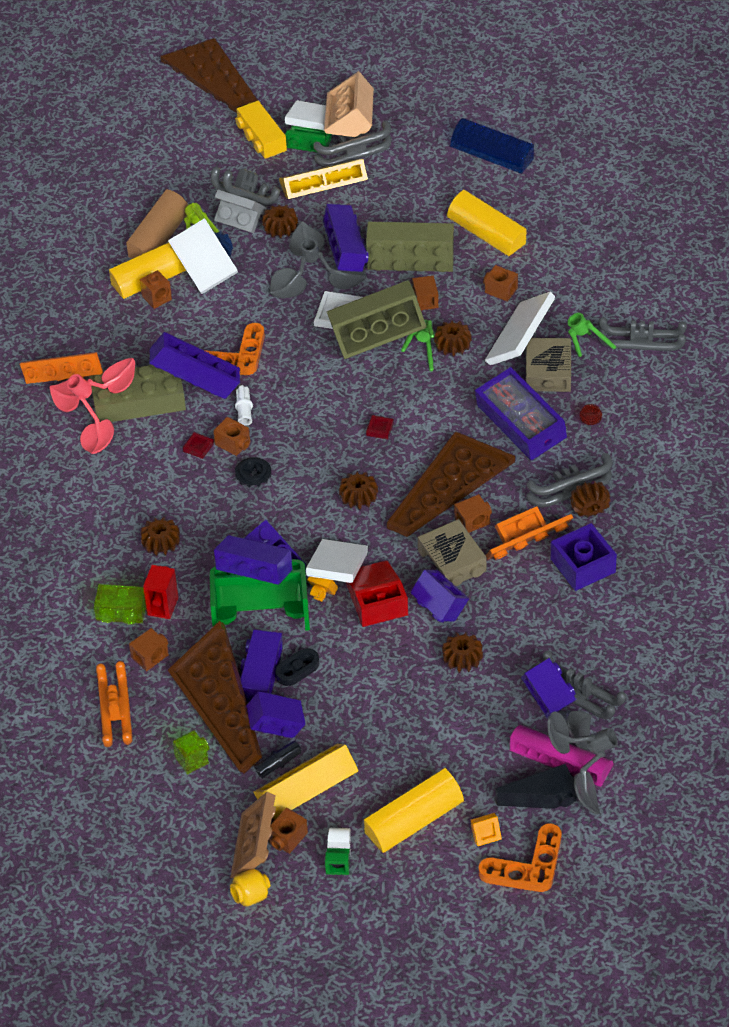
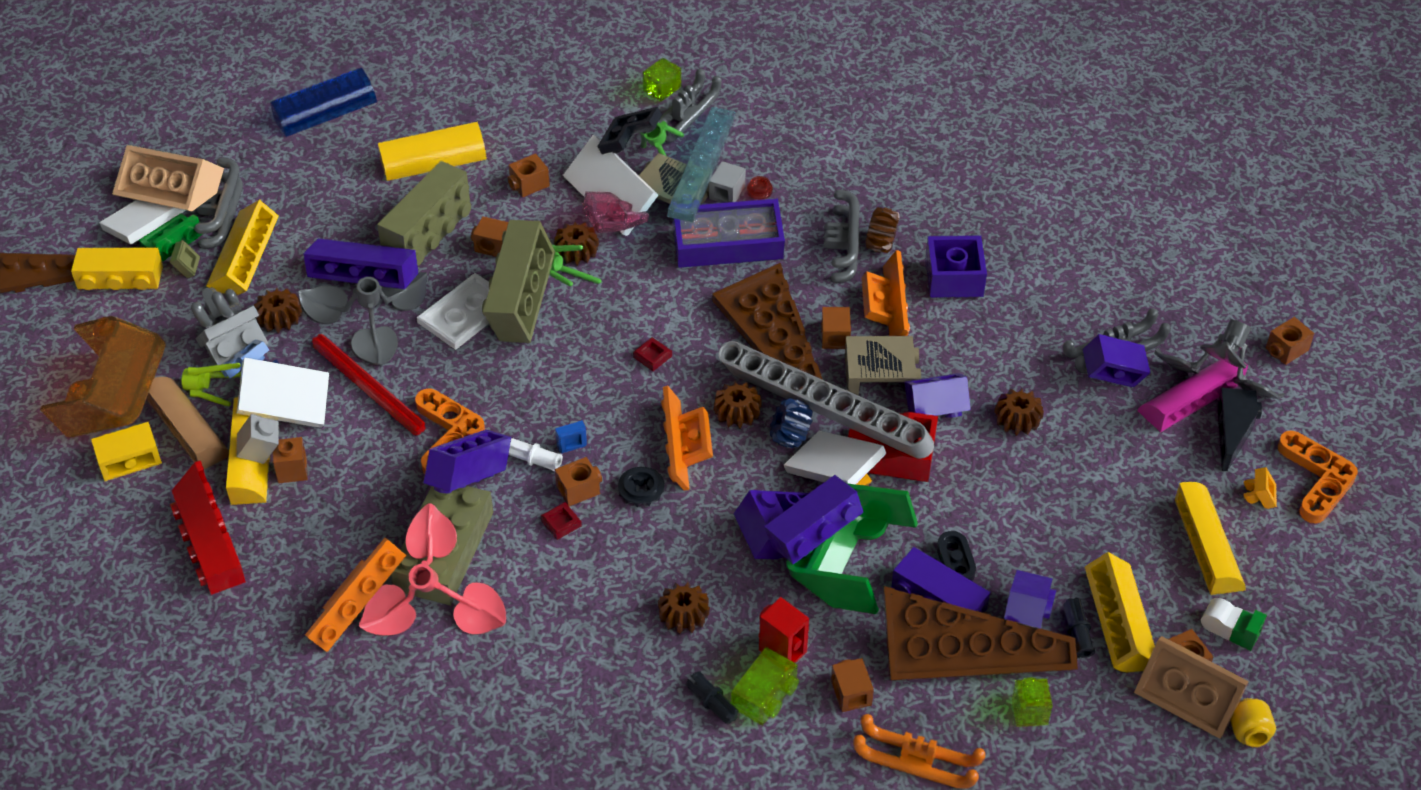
camera: 65 degrees left, 0 degrees up
(74, 281) = (206, 531): none -> red wedge
(100, 577) = (713, 698): none -> black axle
(115, 213) = (126, 451): none -> yellow brick
(151, 260) = (257, 439): none -> light grey brick
(159, 171) = (118, 382): none -> clear orange windscreen
(226, 226) = (254, 350): none -> medium blue plate
(249, 297) = (369, 384): none -> red axle
(269, 416) = (571, 437): none -> blue tile
(292, 155) = (185, 259): none -> olive tile
(307, 473) = (687, 437): none -> orange bracket
(354, 523) = (791, 423): none -> dark blue gear
(380, 529) = (743, 363): none -> light grey beam
(487, 339) = (610, 213): none -> clear pink slope
(568, 304) = (625, 126): none -> black plate
(576, 366) = (701, 165): none -> clear light blue tile
(578, 392) = (727, 183): none -> light grey brick
(660, 308) = (662, 79): none -> clear neon green brick
(667, 792) = (1289, 340): none -> dark orange brick

